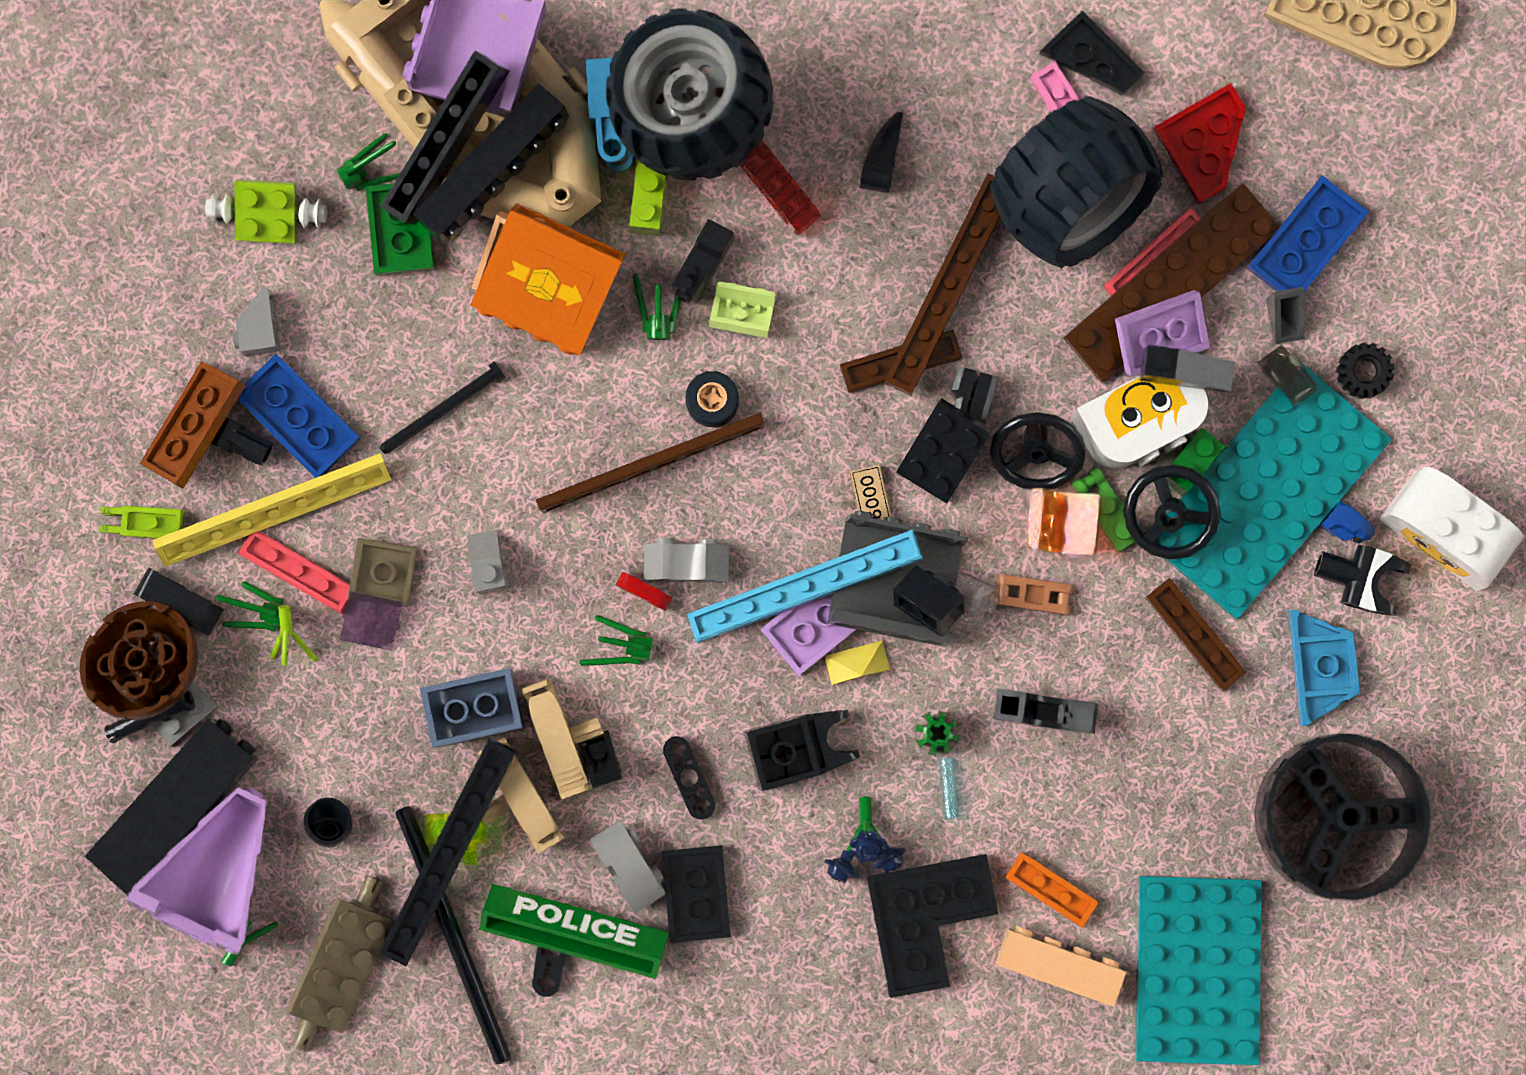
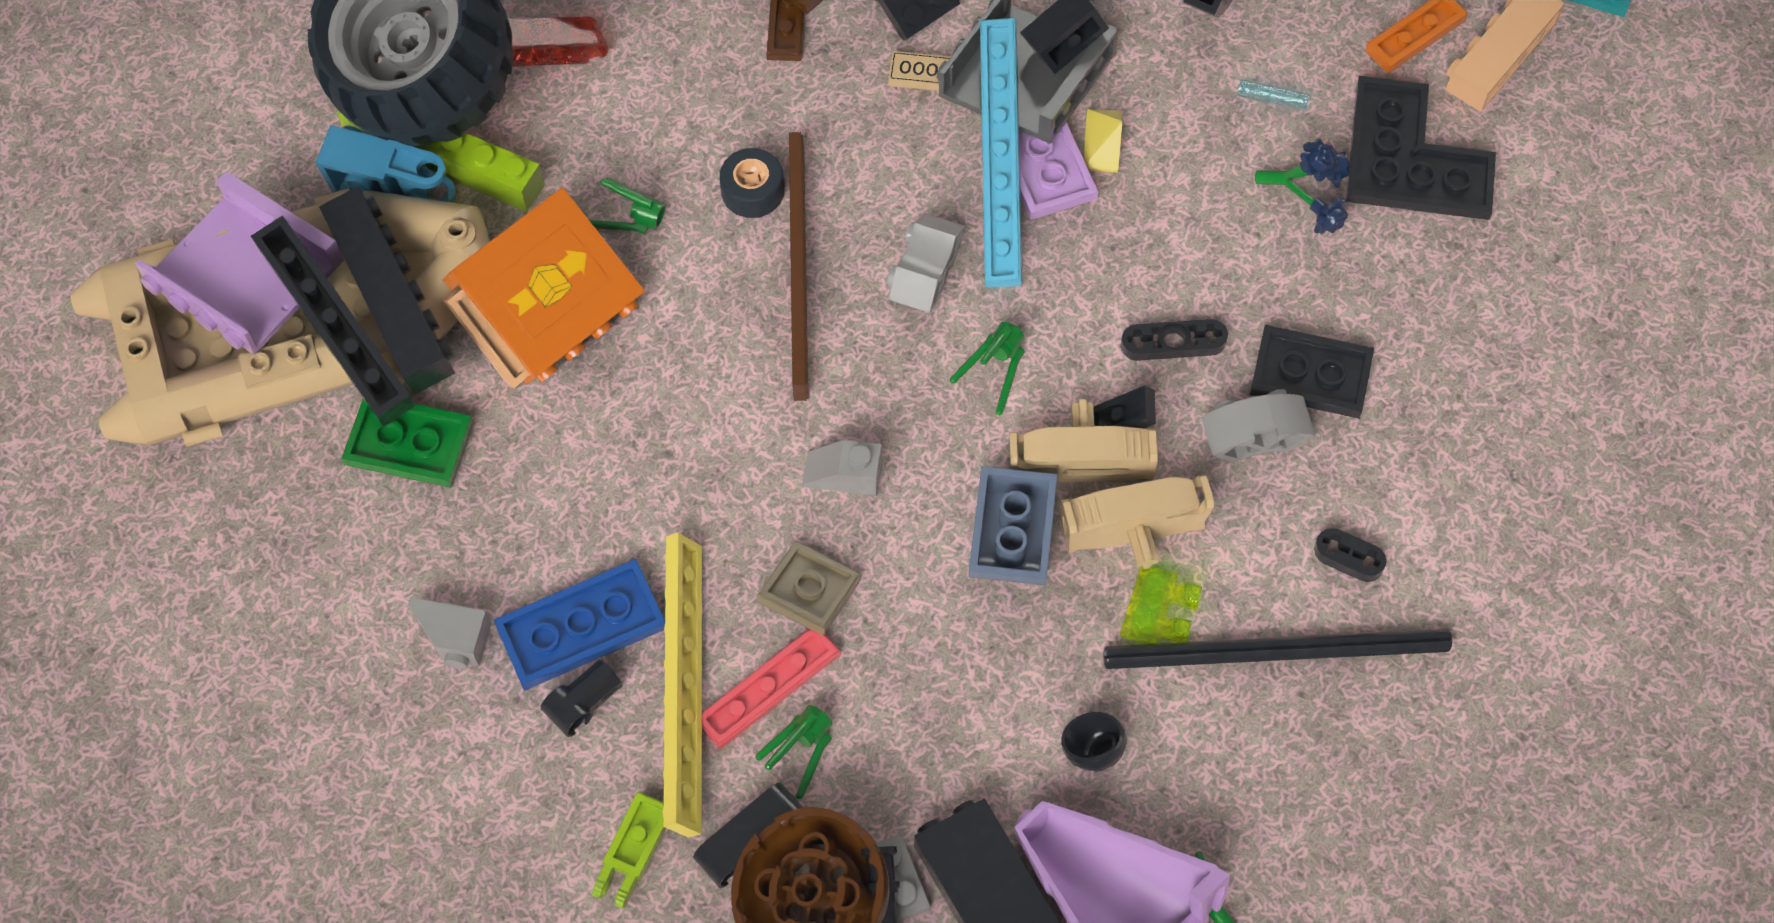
camera: 70 degrees left, 20 degrees down
(192, 424) = (538, 742): dark orange plate -> none
(265, 211) = (316, 578): lime plate -> none
(283, 638) = (850, 709): lime plant -> none
(339, 965) = (1277, 786): dark tan plate -> none
(353, 169) = (319, 469): green plant -> none
(371, 621) = (863, 616): clear purple piece -> none
(443, 408) = (623, 394): black bar -> none
(448, 851) = (1180, 604): black plate -> none
(573, 931) = (1316, 506): green brick -> none
(644, 591) = (942, 316): red beam -> none
(702, 262) = (592, 140): black piece -> none
(742, 309) = (664, 123): yellowish green bracket -> none
(807, 746) = (1180, 220): black brick -> none
(928, 734) = (1210, 81): green piece -> none

